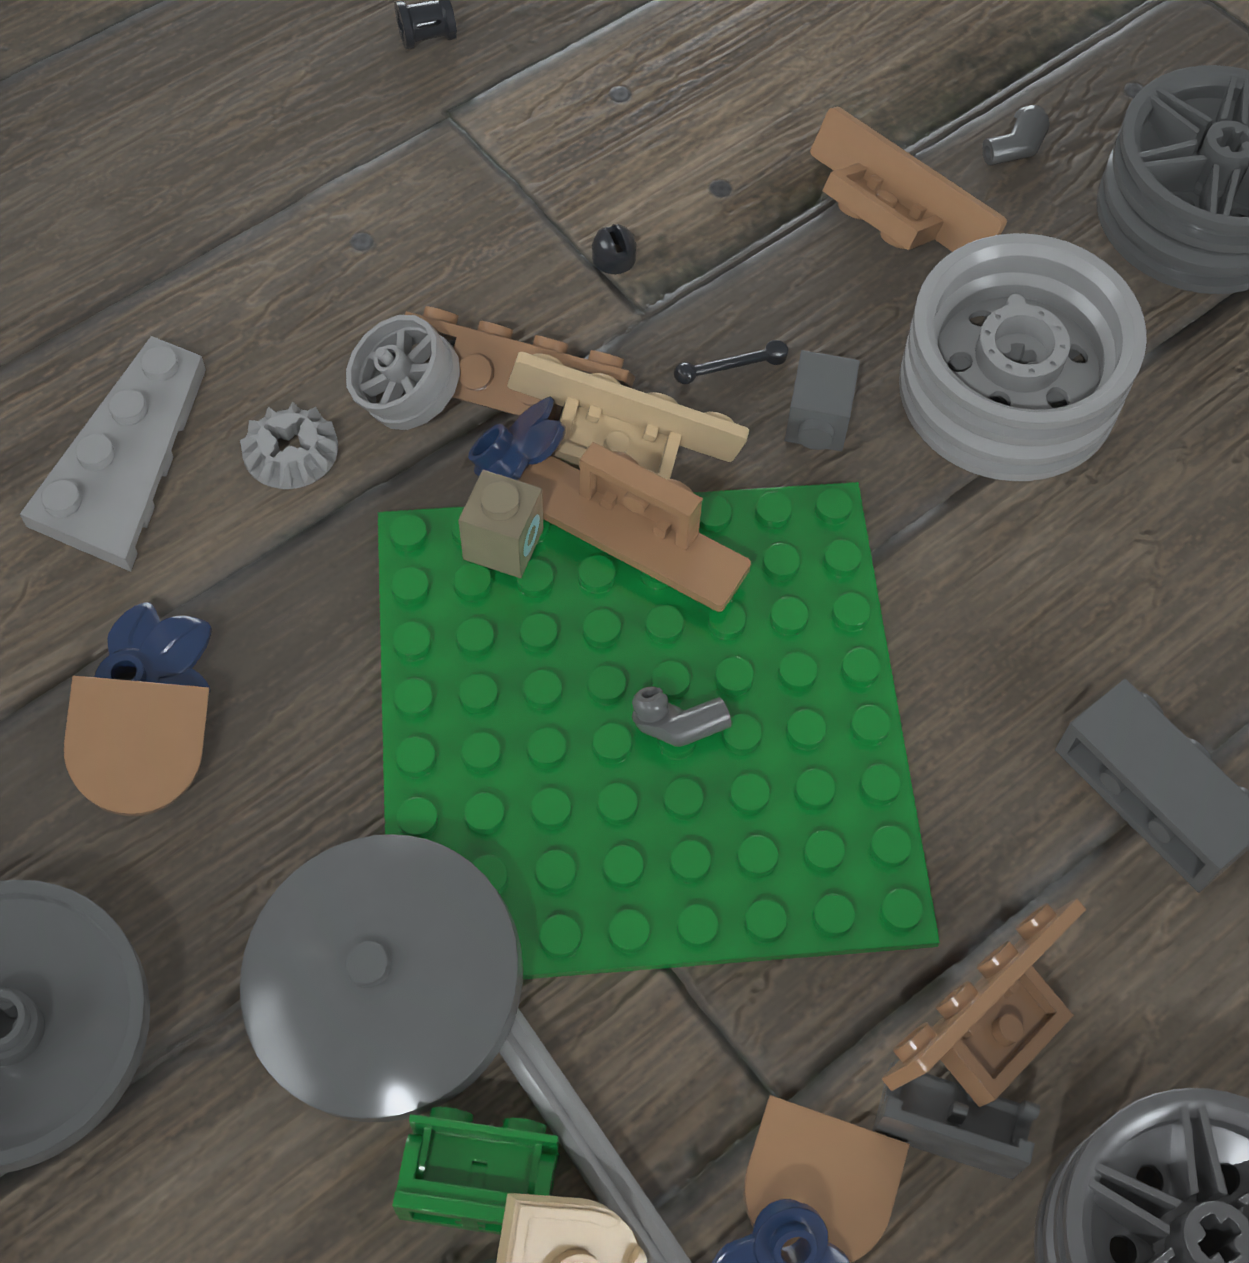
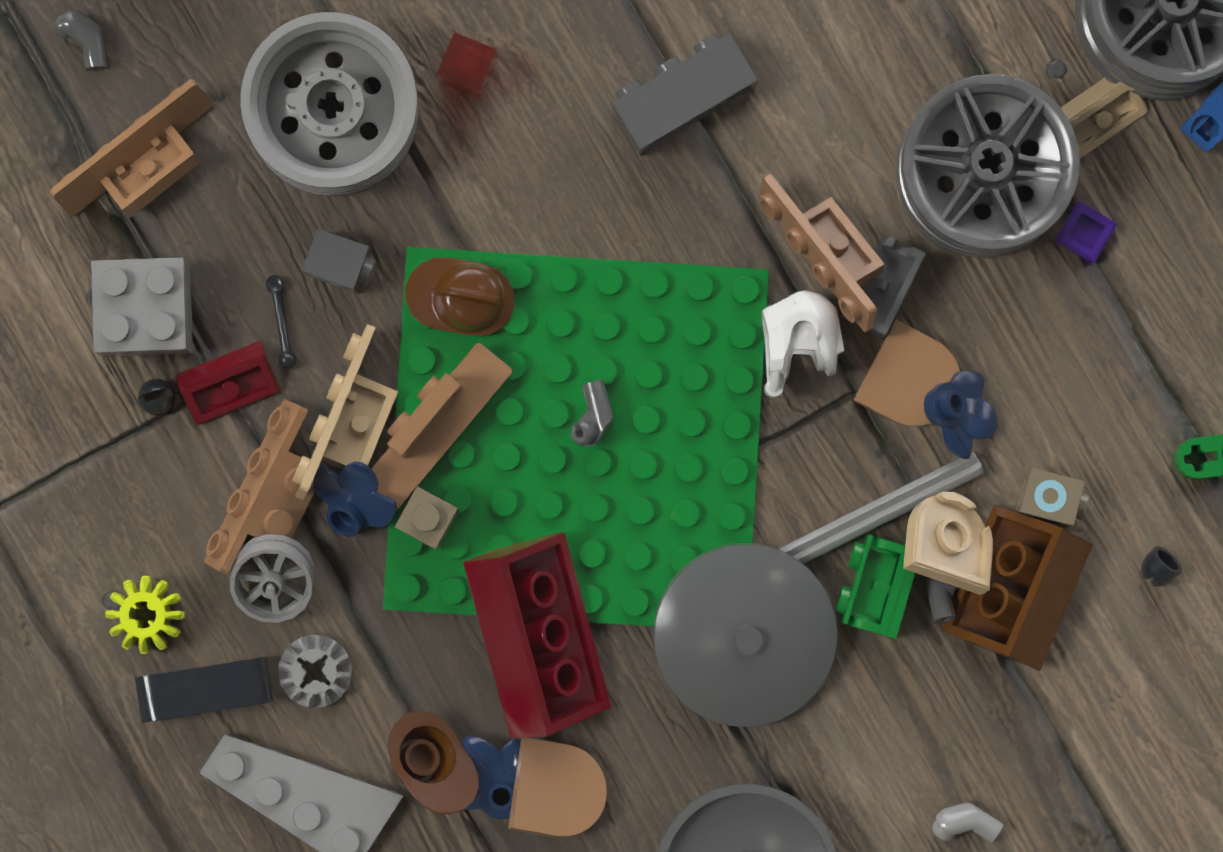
camera: 85 degrees left, 25 degrees up
(164, 572) = (432, 763): none -> reddish brown piece
(257, 328) = (203, 689): none -> black beam
(345, 258) = (134, 626): none -> neon yellow gear
(352, 686) = (537, 636): none -> dark red slope
(643, 317) = (228, 382): none -> dark red slope
(719, 212) = (142, 307): none -> light grey brick
(807, 544) = (459, 296): none -> reddish brown piece
(864, 977) = (803, 326): none -> white helmet
(1115, 510) = (467, 65): none -> clear red brick

